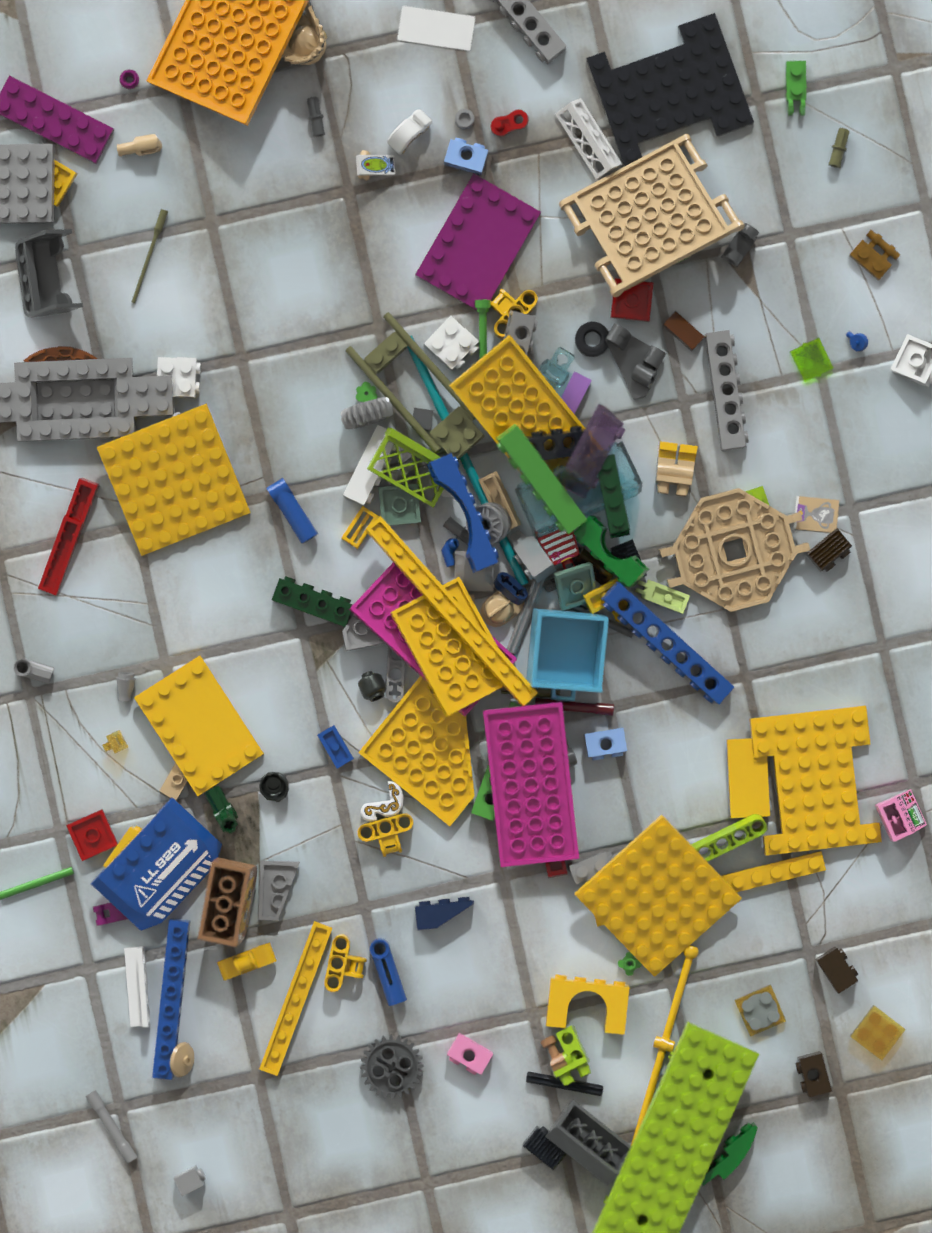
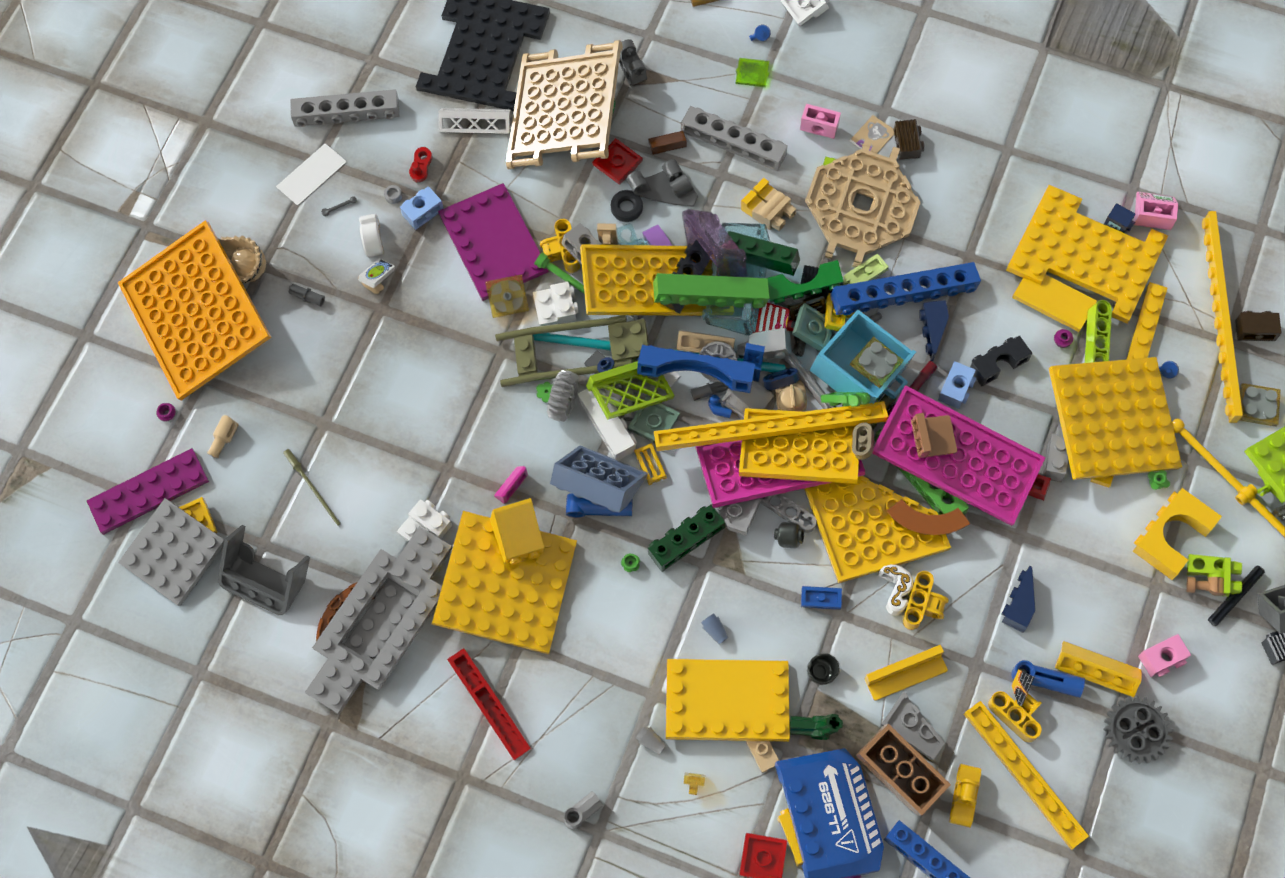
camera: 50 degrees left, 20 degrees down
(215, 464) = (517, 531): none -> yellow slope
(251, 676) = (714, 628): none -> sand blue cone
(256, 570) = (633, 558): none -> bright green plate
(263, 422) = (511, 484): none -> dark pink slope
(313, 495) = (597, 478): none -> sand blue slope
(317, 855) = (906, 673): none -> yellow panel
(363, 954) = (1021, 686): none -> sticker
(407, 70) = (325, 212): none -> dark grey hinge
(417, 432) = (605, 364): none -> dark blue plate
(425, 1007) = (1099, 669): none -> yellow panel
(430, 297) = (507, 296): none -> clear yellow piece
(454, 796) = (925, 523): none -> dark orange tile
(485, 698) = (862, 442): none -> dark tan plate
(508, 554) = (754, 354): none -> blue slope
(521, 658) = (846, 398): none -> bright green hinge
(529, 755) = (933, 435): none -> medium nougat bracket
(539, 349) = (607, 233): none -> tan plate
(565, 665) = (876, 362): none -> light grey piece
(639, 756) = (1012, 351): none -> black arch
(656, 687) = (934, 318): none -> dark blue slope
(709, 803) = (1061, 342): none -> magenta plate
(742, 915) = (1169, 369): none -> blue piece
(793, 459) = (820, 121): none -> bright pink brick
(820, 936) = (1222, 321): none -> yellow plate
(869, 791) = (1120, 218): none -> dark blue brick

